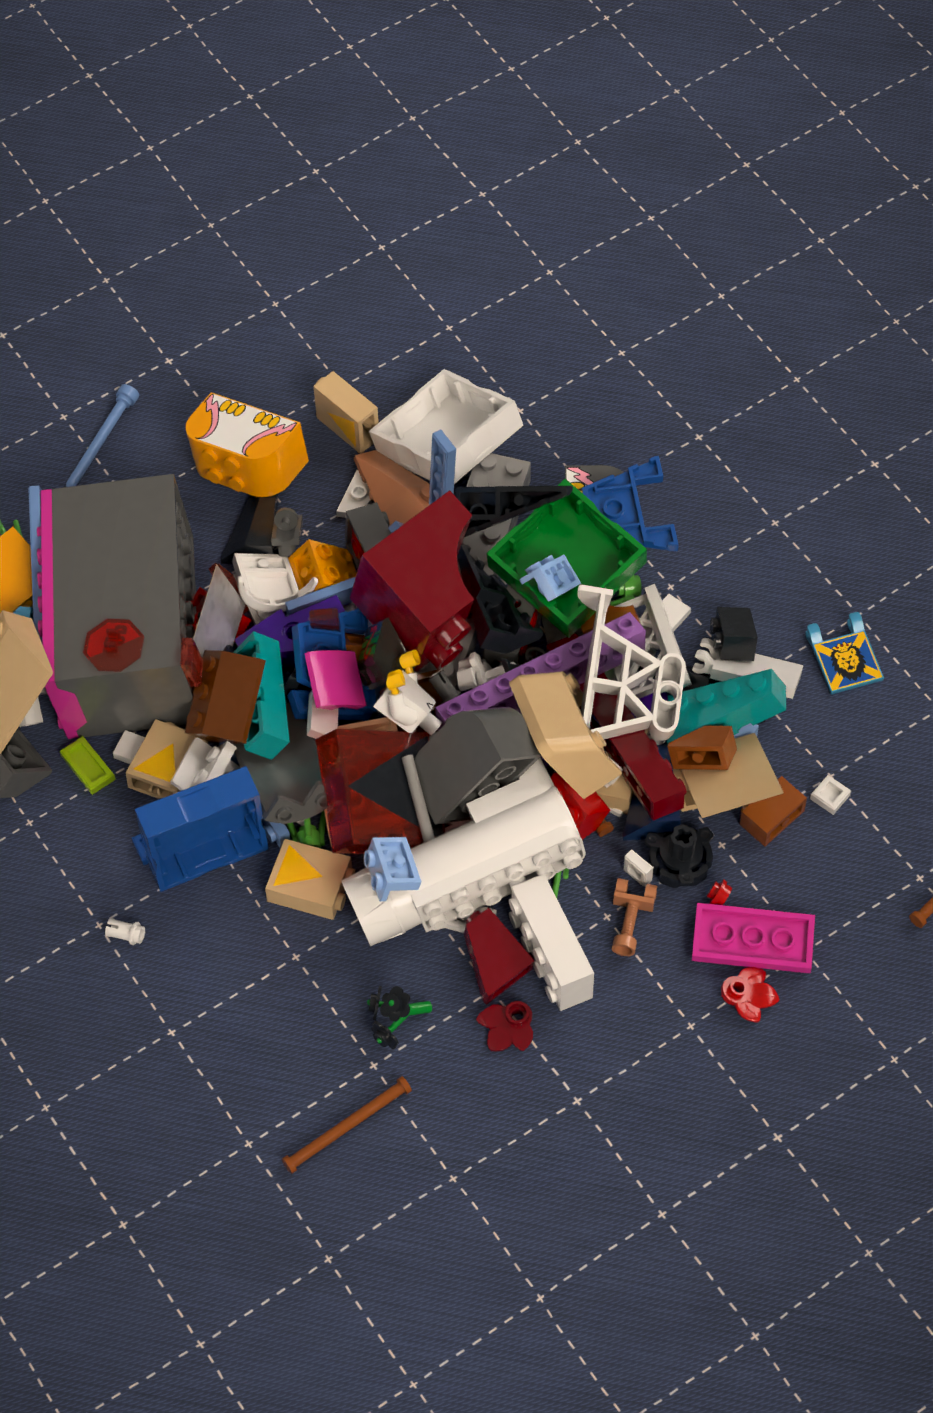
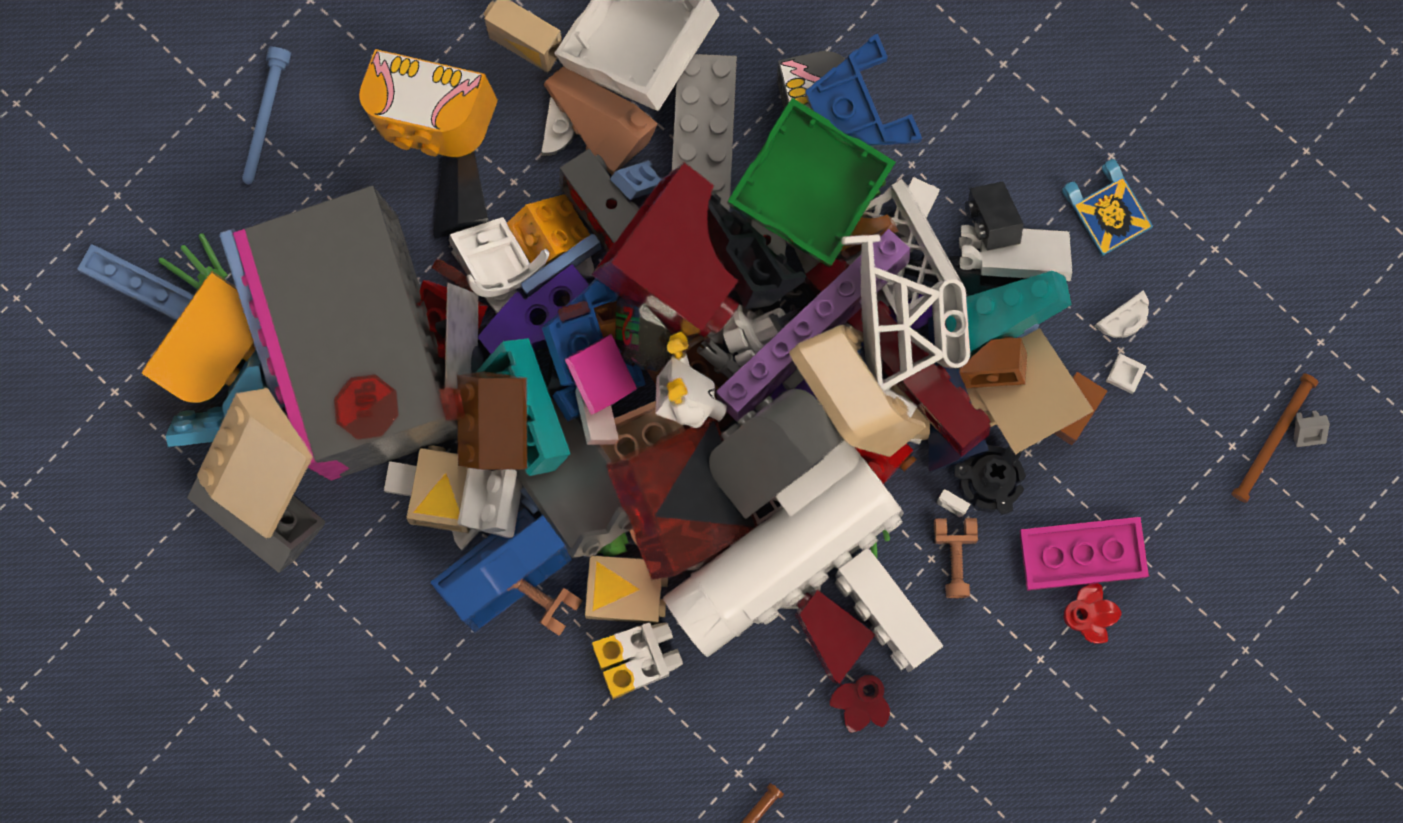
camera: 15 degrees left, 20 degrees up
(87, 765) = (360, 508): lime tile -> none
(131, 932) = (453, 688): white pin -> none
(208, 846) = (549, 604): none -> nougat bar
(286, 531) = (498, 194): dark grey hips -> none
(301, 939) = (645, 657): none -> white hips
(391, 866) = (718, 587): light blue bracket -> none
(395, 1007) = (749, 718): black plant -> none
(418, 798) = (722, 496): light grey bar -> none
(442, 466) = (659, 130): medium blue tile -> none
(501, 503) = (716, 135): black wedge -> none
(552, 576) = (803, 213): light blue bracket -> none
(719, 892) = (1039, 512): red plate -> none
(840, 747) = (1127, 318): none -> white plate

